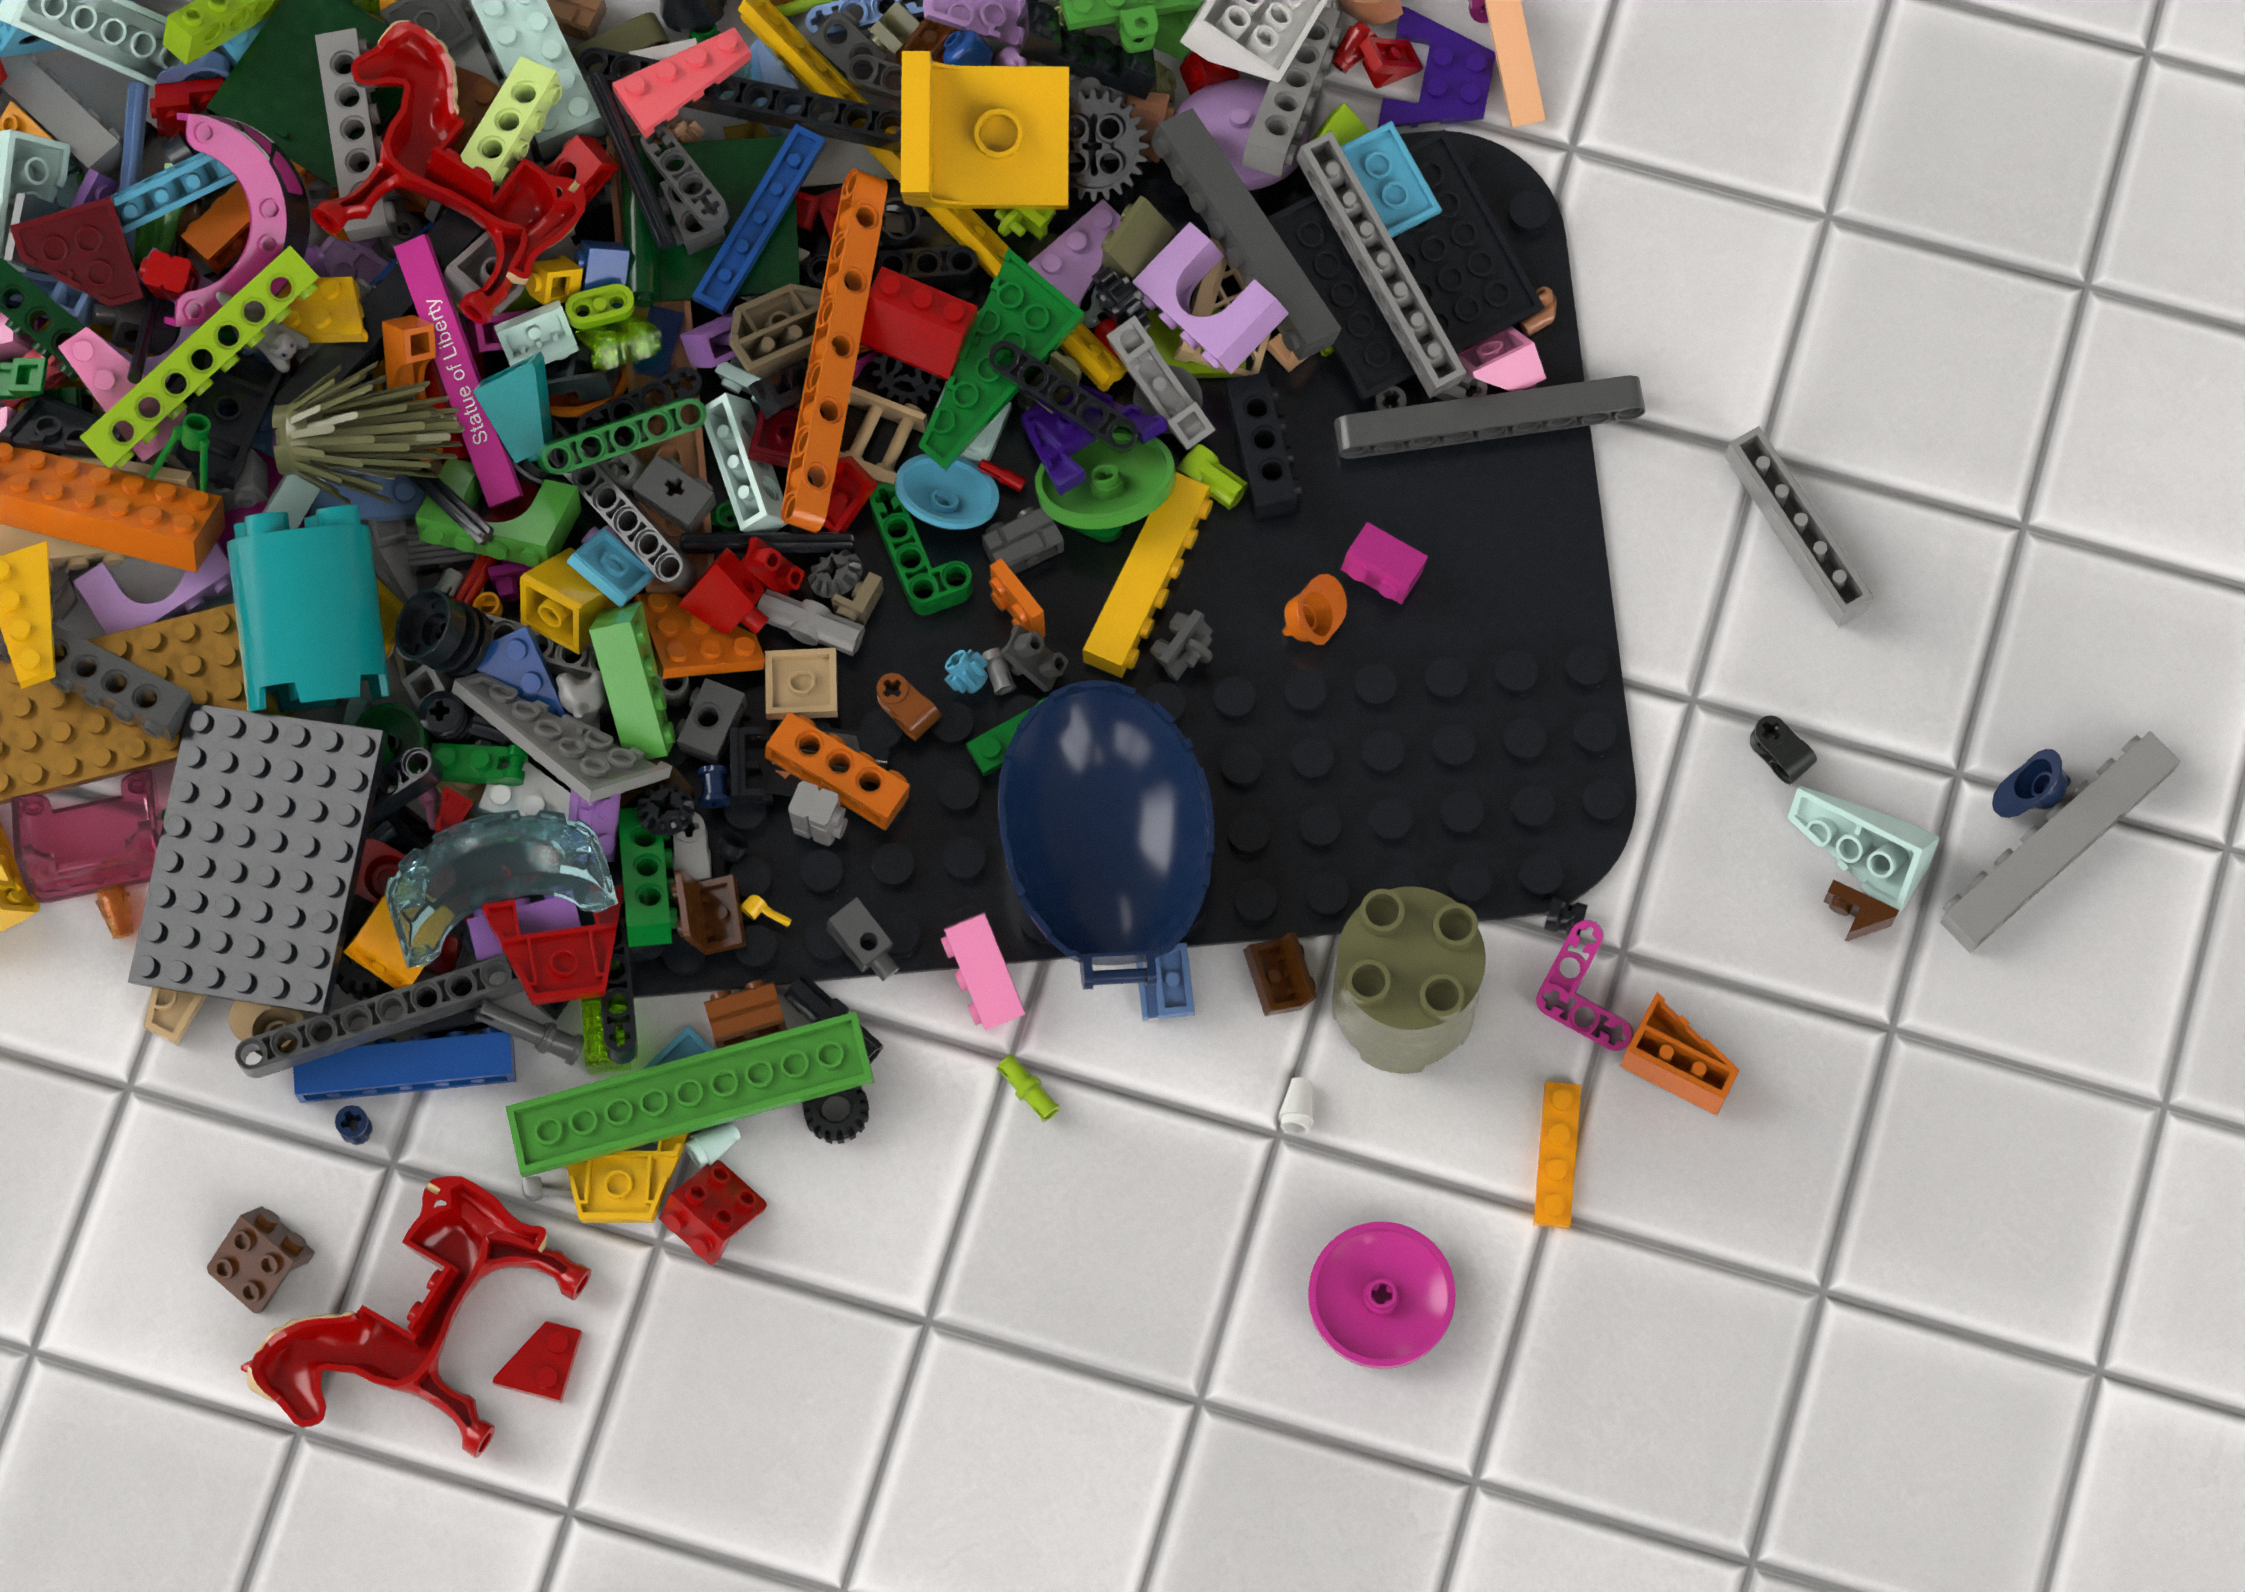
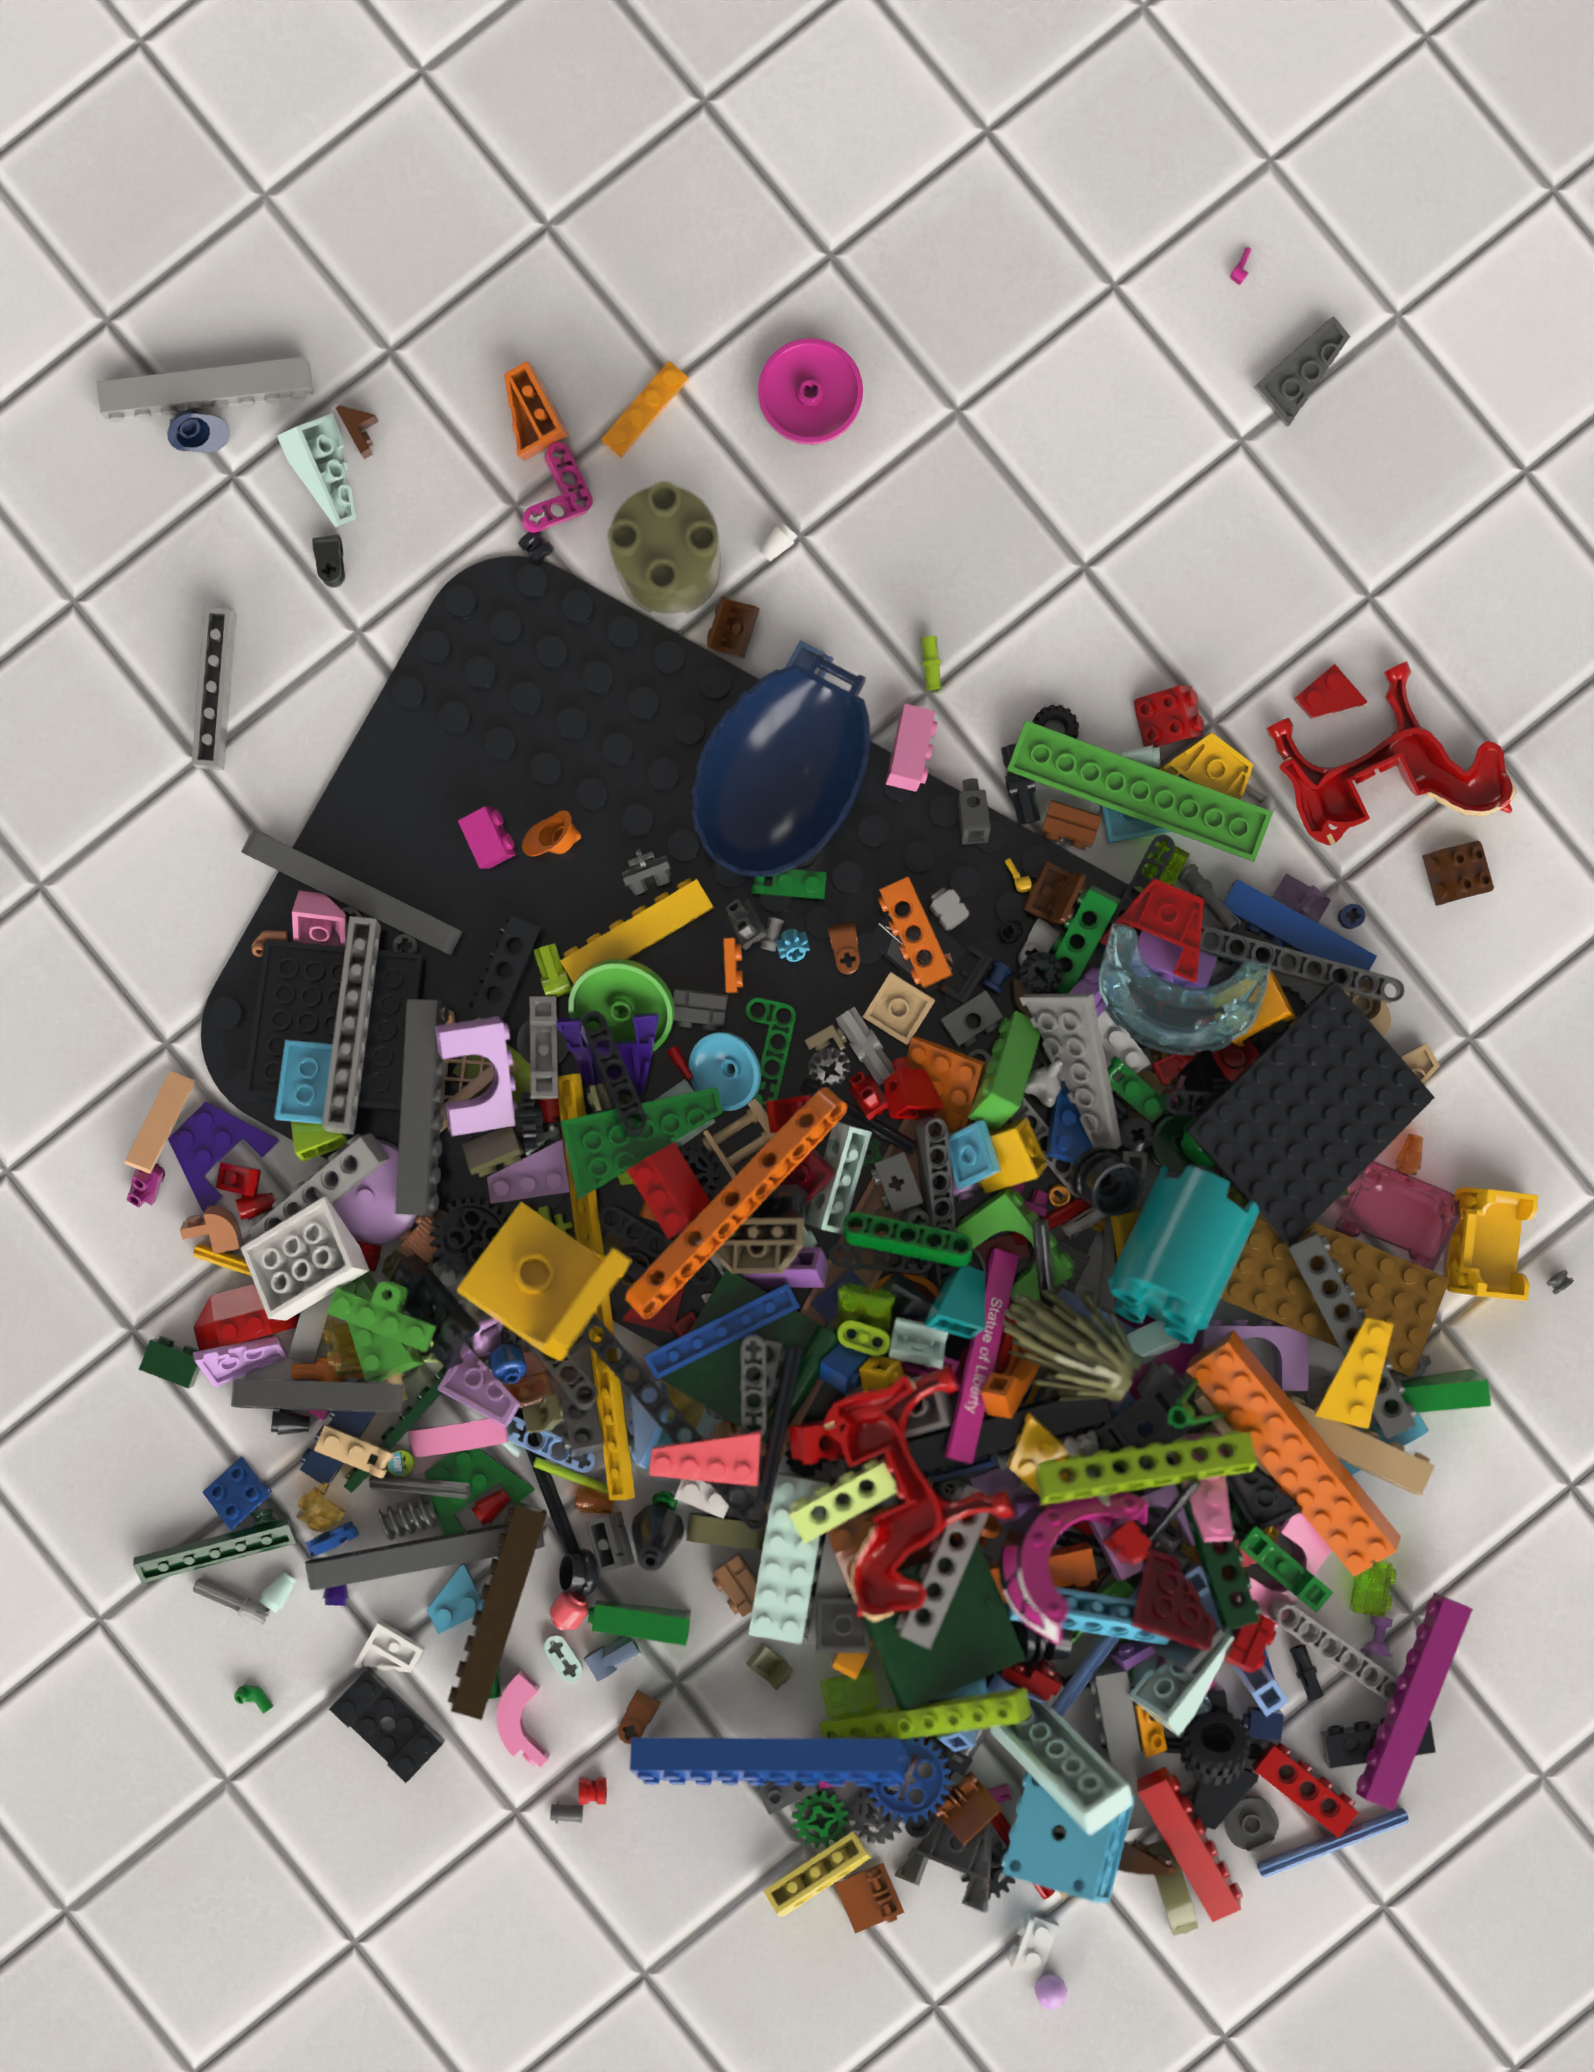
camera: 145 degrees left, 15 degrees up
(424, 1112) = (1302, 898): none -> clear purple slope

